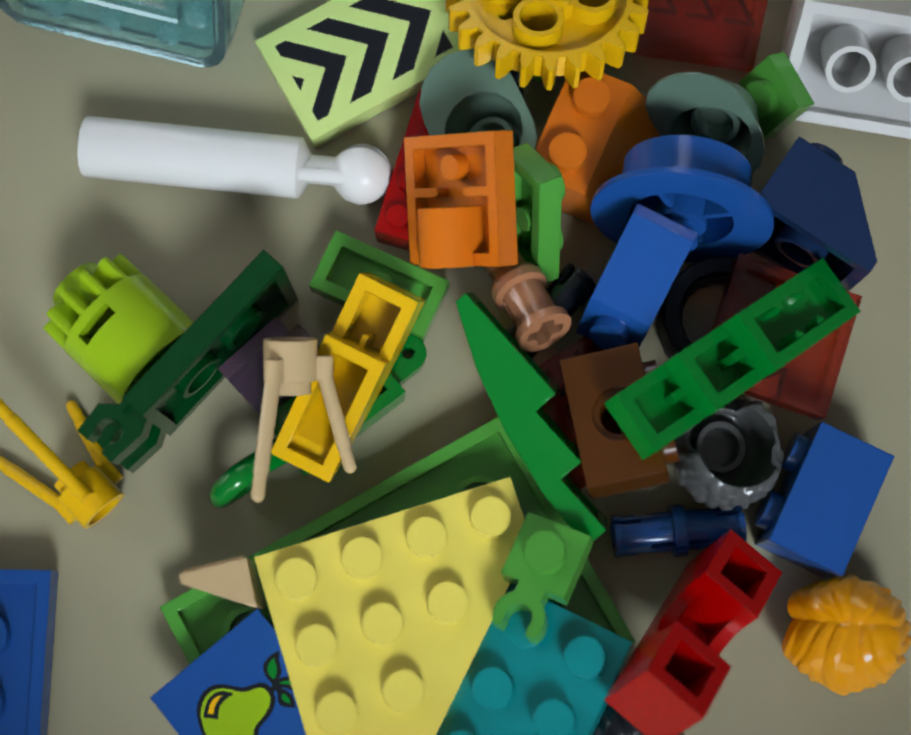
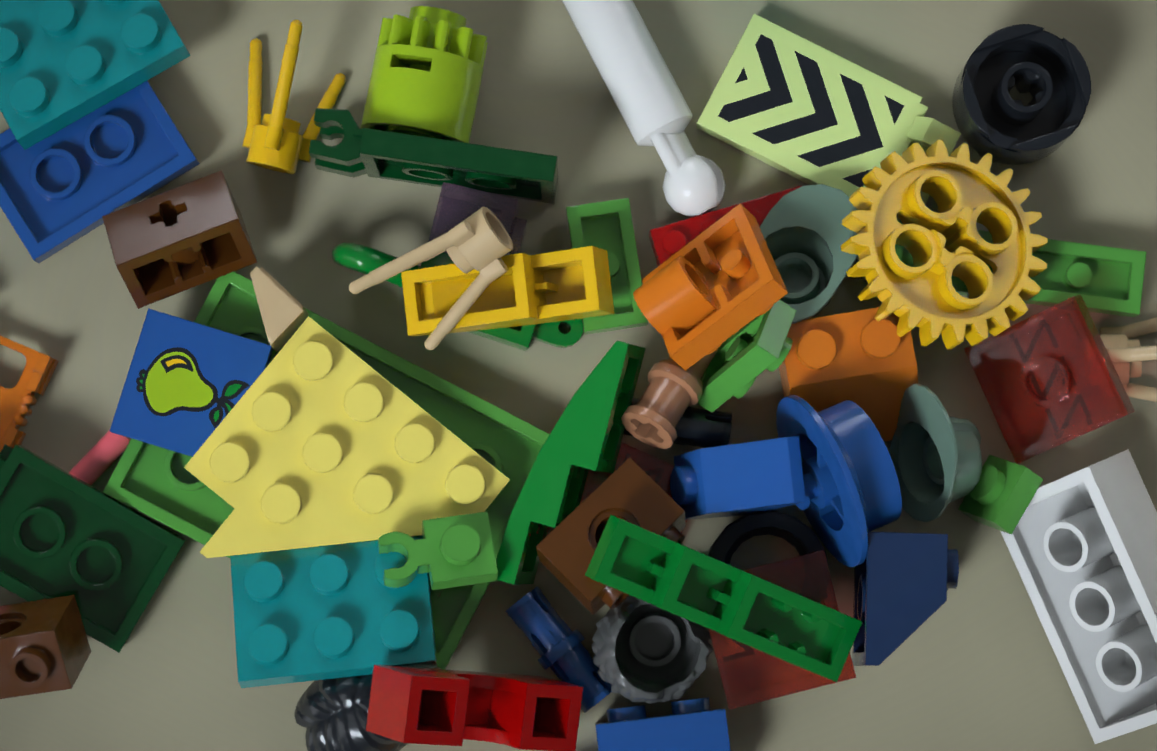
camera: 55 degrees right, 5 degrees up
(108, 631) = (179, 239): none -> reddish brown brick

